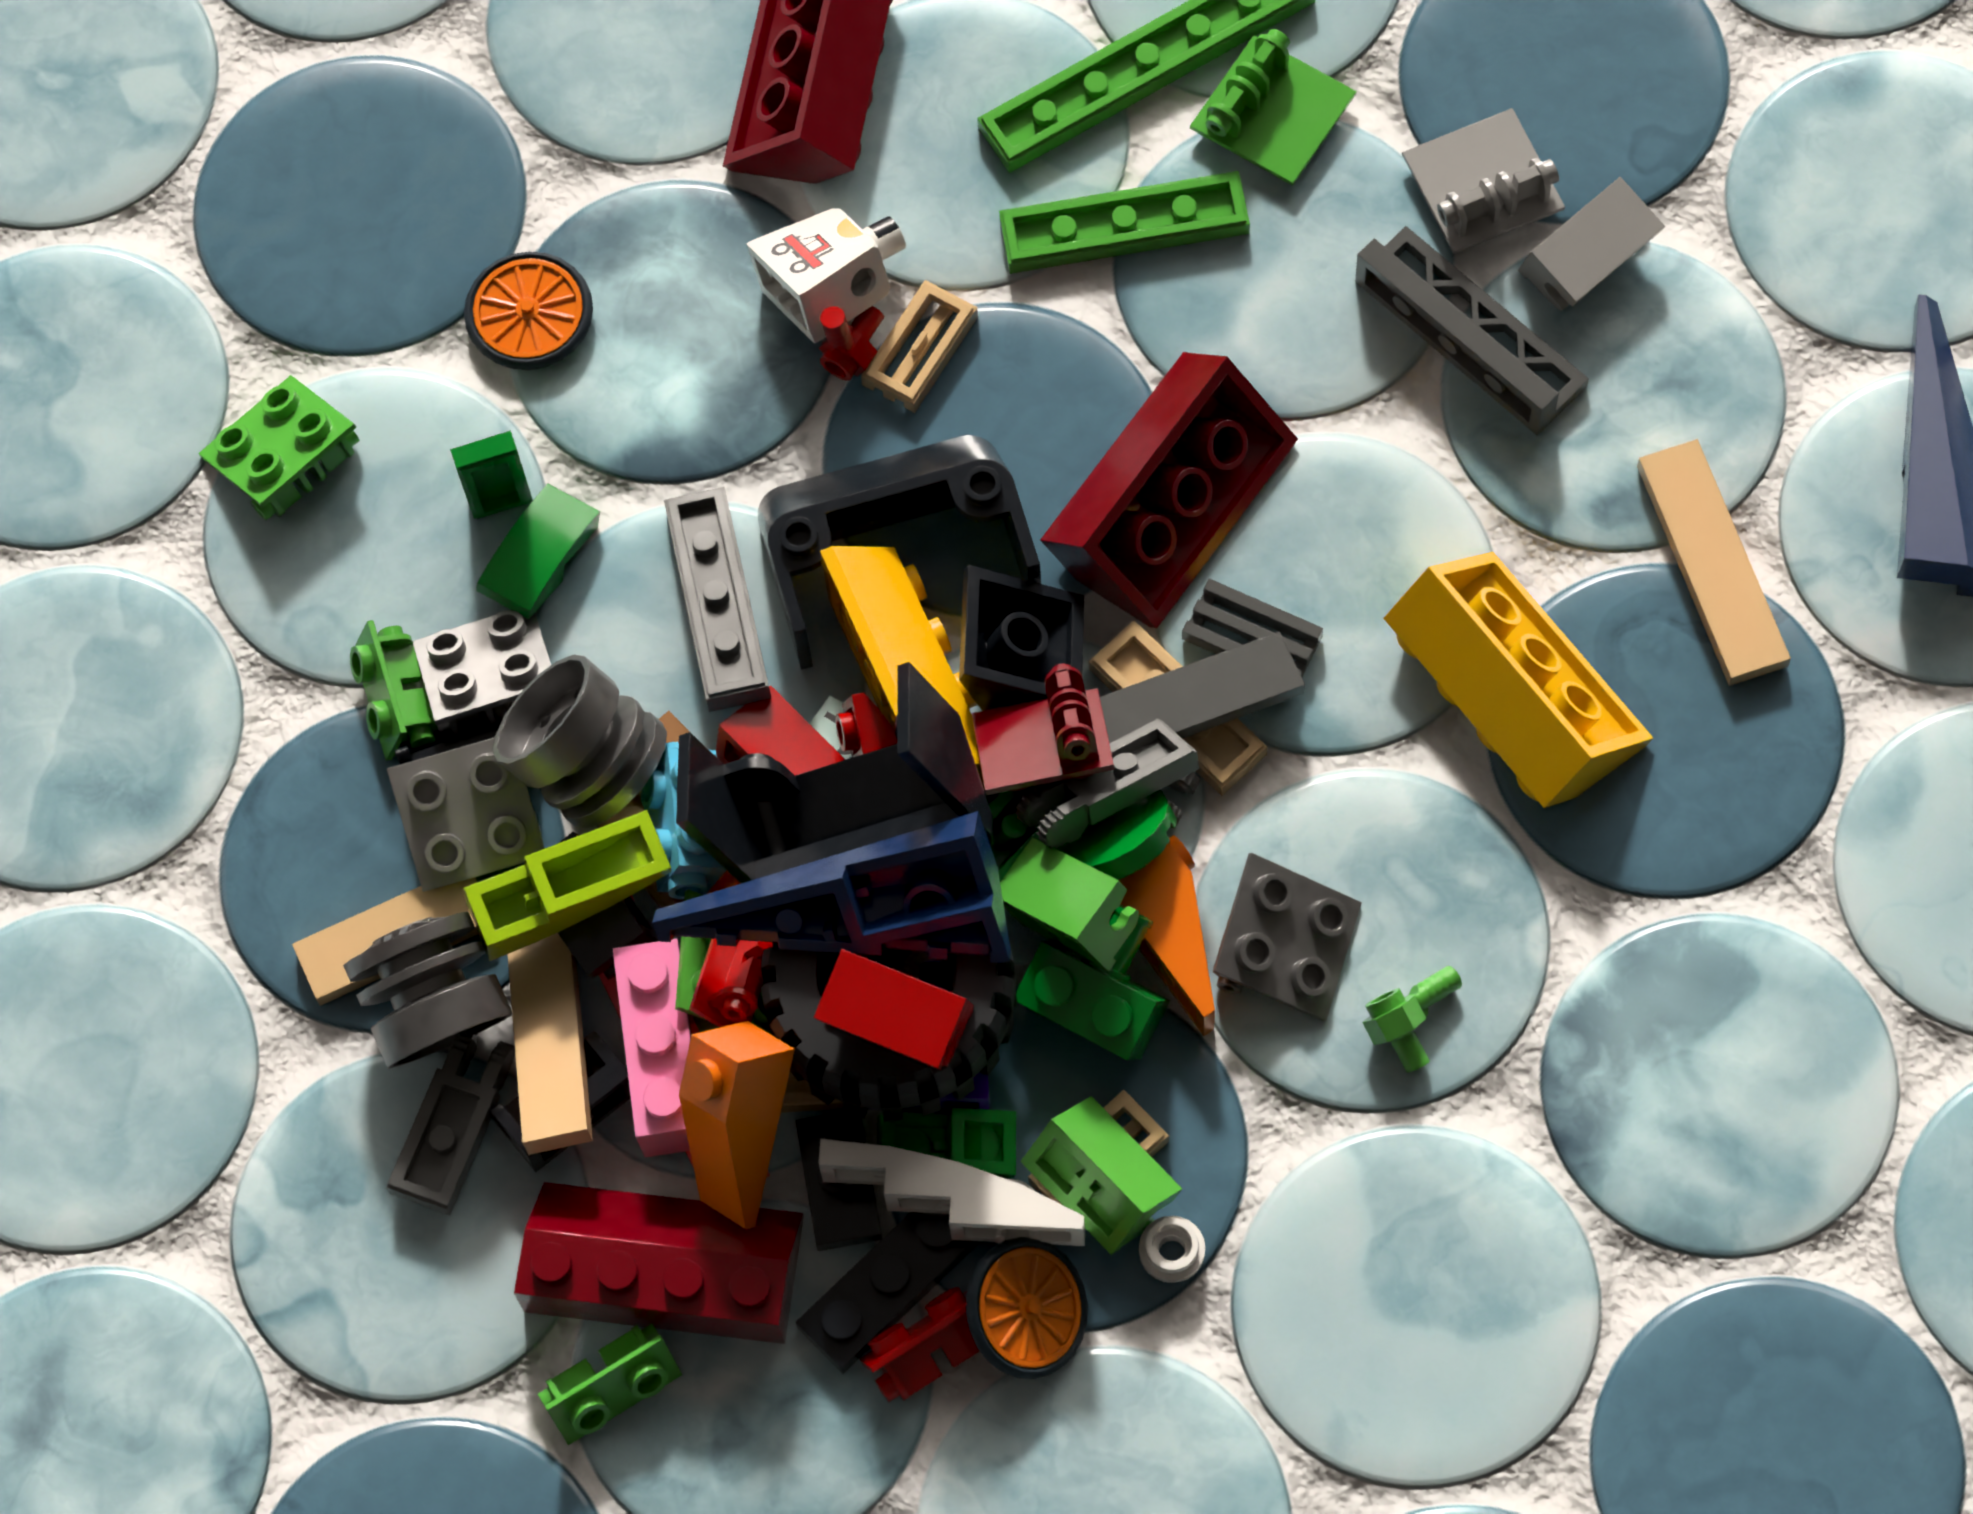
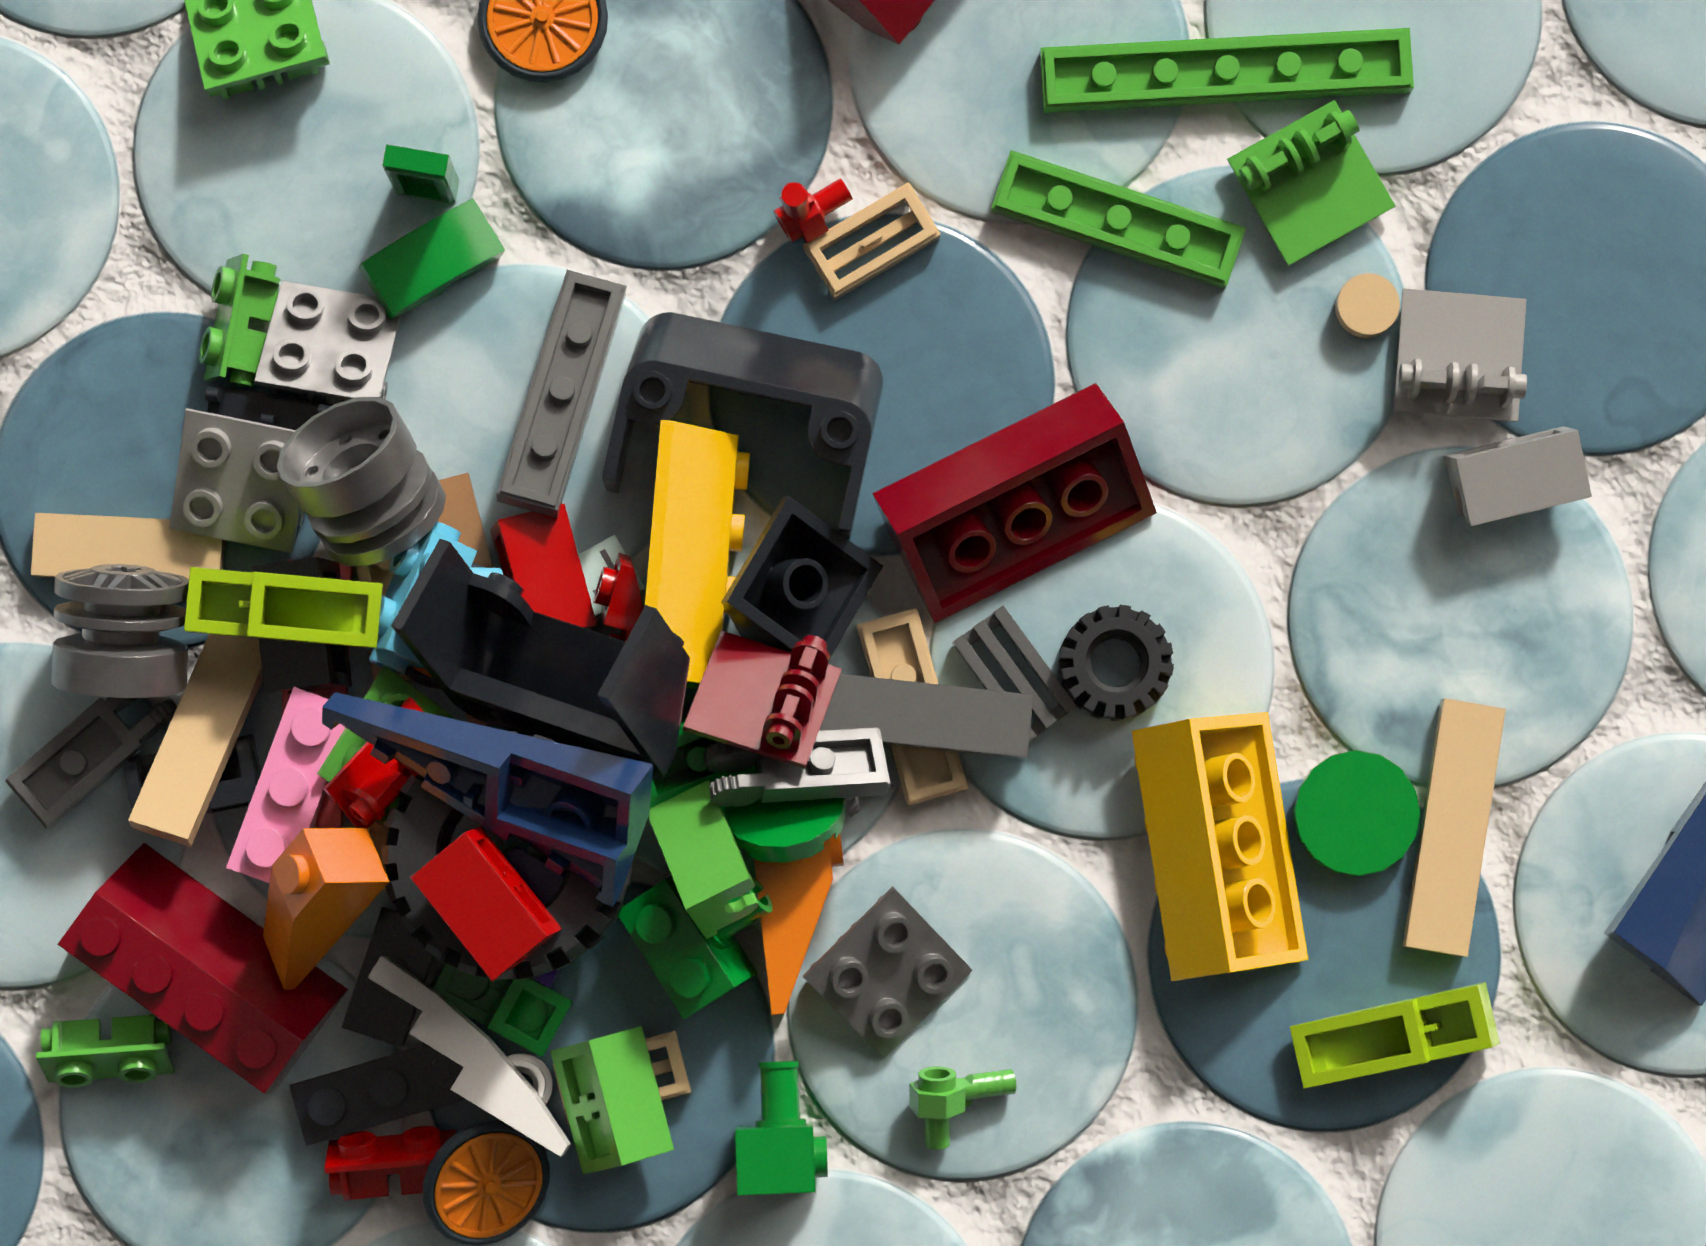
camera: 15 degrees right, 15 degrees up
(825, 265) = (822, 129): white torso -> none
(1172, 1229) = (625, 1207): white plate -> none
(1279, 1130) = (780, 1148): none -> green brick
(1336, 540) = (1138, 631): none -> black tyre
(1379, 182) = (1367, 305): none -> tan tile
(1467, 340) = (1348, 495): dark grey fence -> none
(1621, 593) = (1356, 813): none -> green tile
(1768, 756) = (1395, 1035): none -> lime slope

